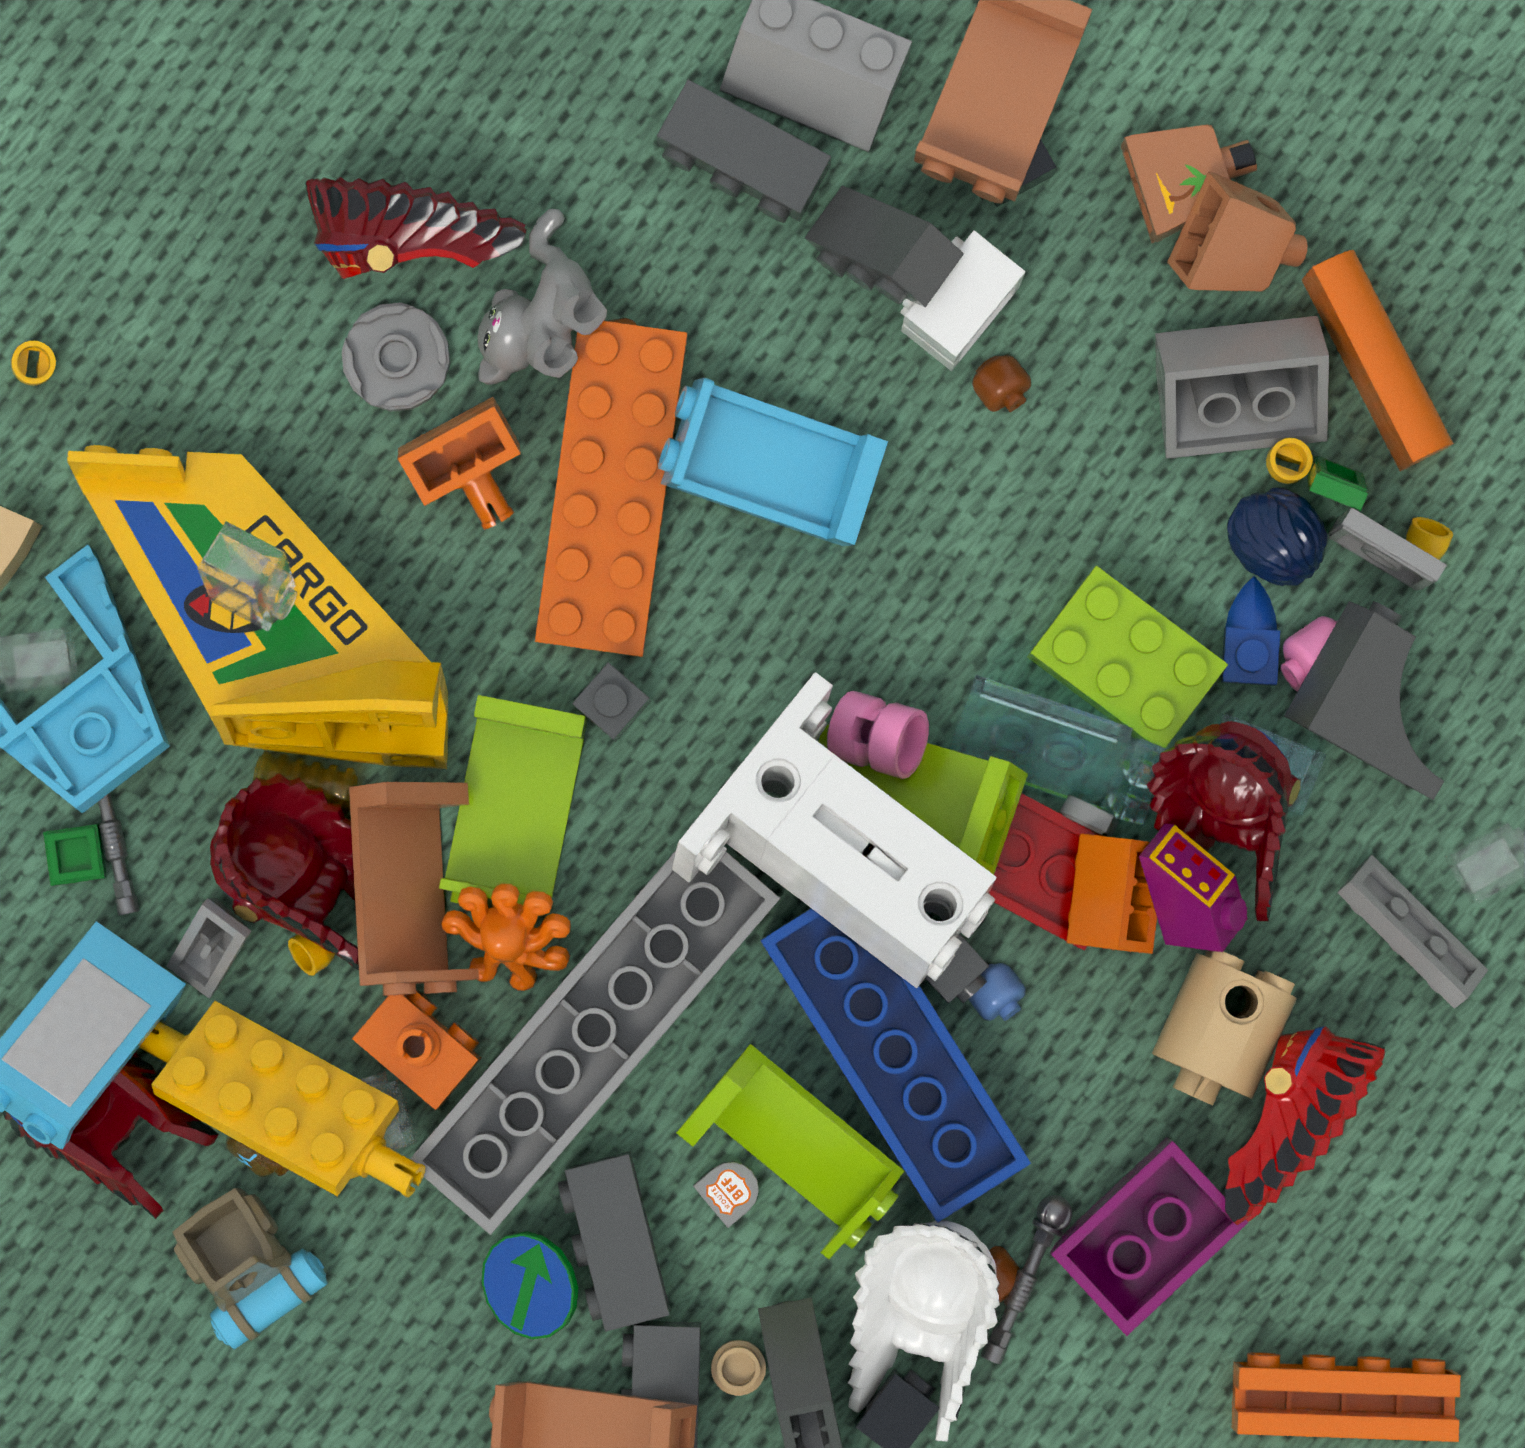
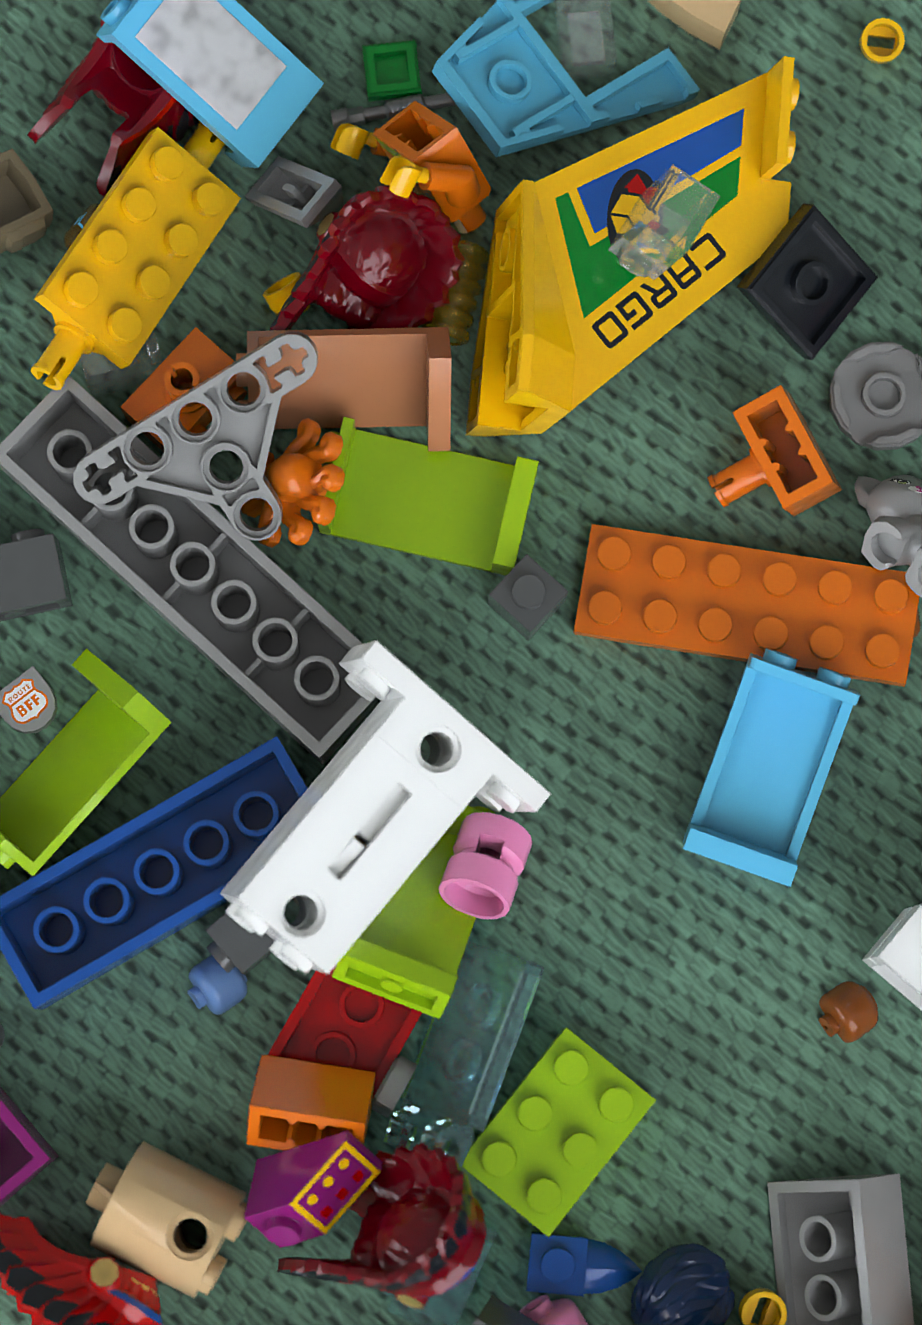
camera: 85 degrees right, 5 degrees down
(176, 812) = (424, 158): none -> orange torso
(285, 433) = (807, 281): none -> black tile
(489, 1038) = (187, 455): none -> light grey beam

